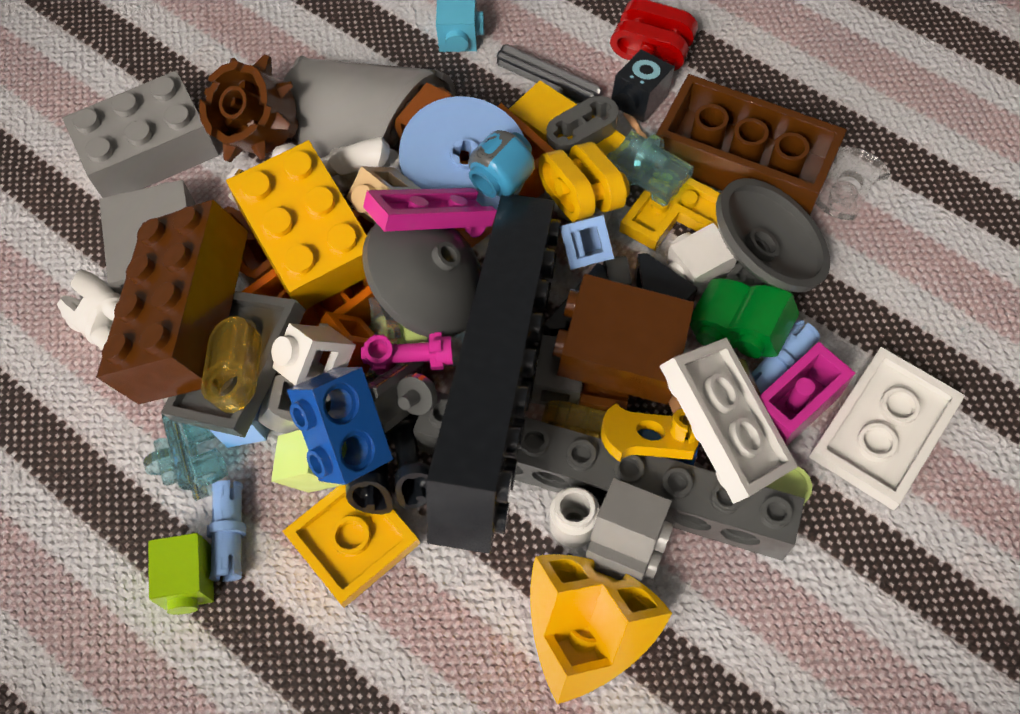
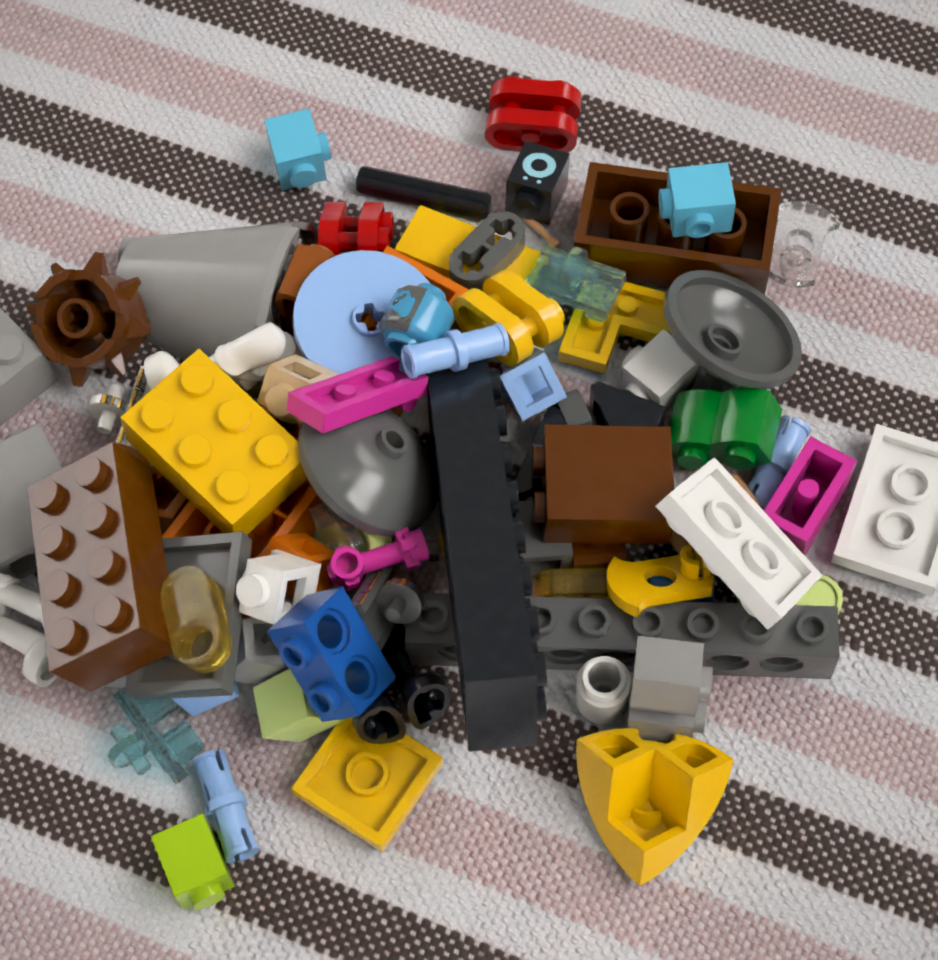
camera: 15 degrees left, 0 degrees up
(494, 88) = (354, 233): none -> red brick
(525, 193) = (454, 350): none -> light blue pin
(772, 120) = (698, 200): none -> medium azure brick

